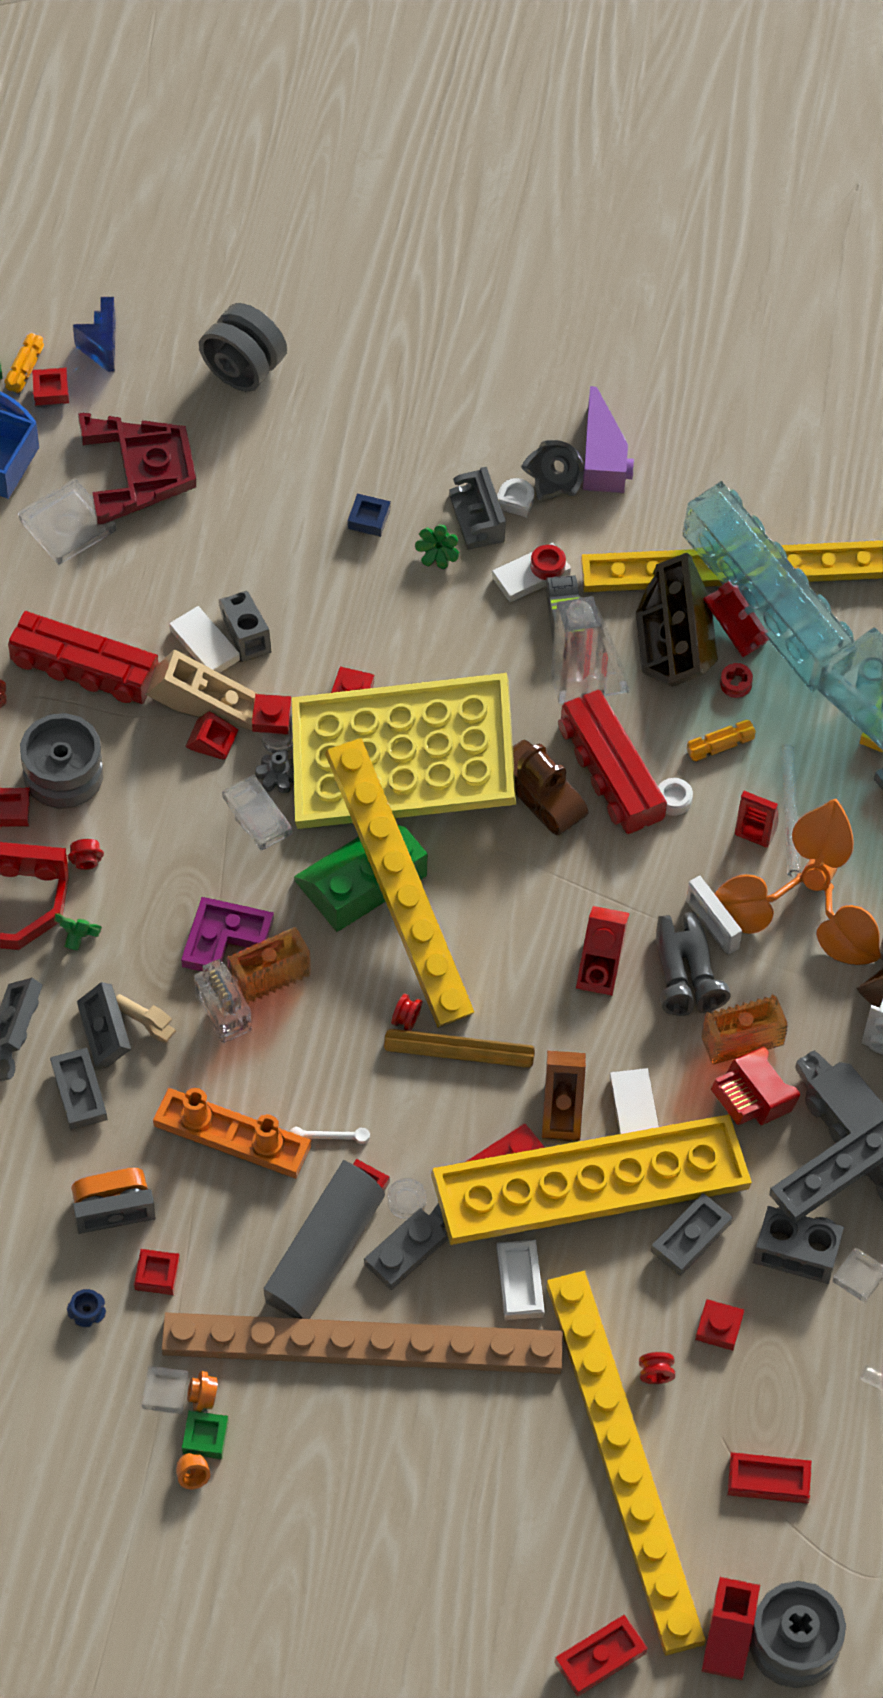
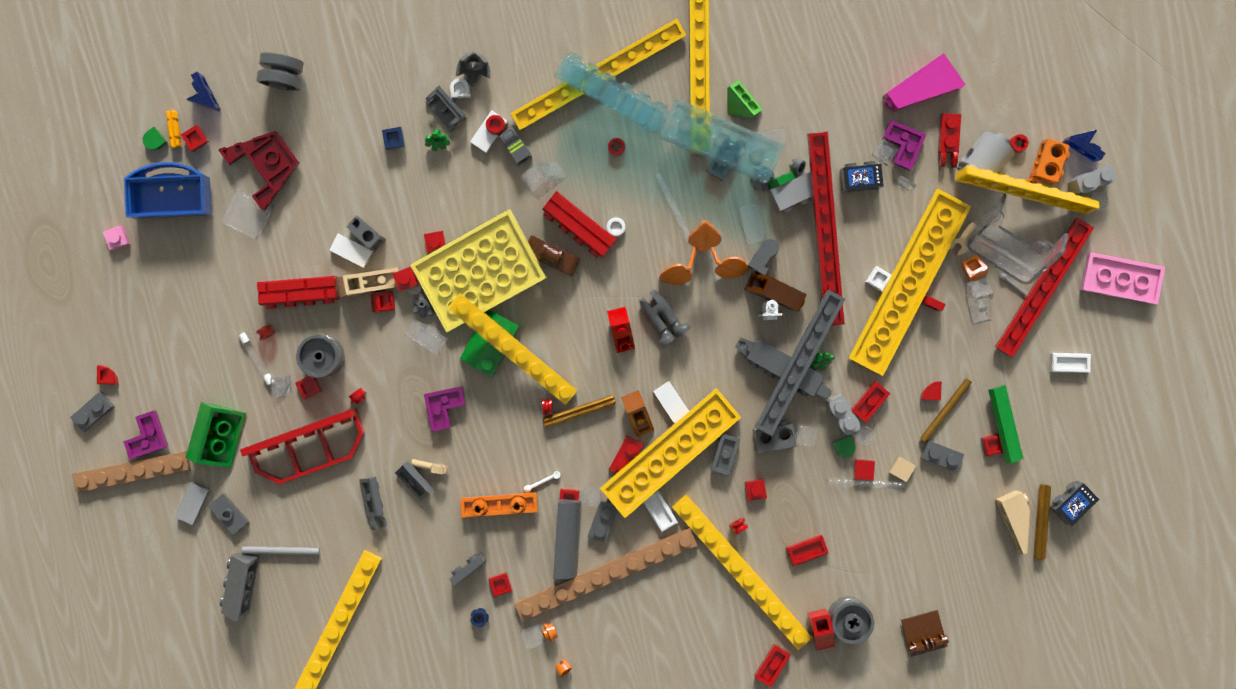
camera: 25 degrees left, 30 degrees up
(76, 930) = (374, 438): green plant -> none
(78, 1088) = (419, 516): dark grey plate -> none
(108, 1184) = (460, 558): orange beam -> none
(205, 1434) = (560, 648): green tile -> none
(222, 1001) = (461, 443): clear piece -> none
(270, 964) = (473, 416): clear orange brick -> none
(606, 449) = (491, 40): medium lavender slope -> none
(676, 624) = (576, 134): dark brown wedge -> none
(713, 915) = (664, 286): white tile -> none
(721, 740) = (624, 185): light orange axle -> none
(742, 629) = (602, 115): red hinge -> none
(744, 1029) = (705, 343): clear orange brick -> none
(754, 1090) = (722, 371): red piece -> none
(757, 819) = (662, 225): red slope -> none

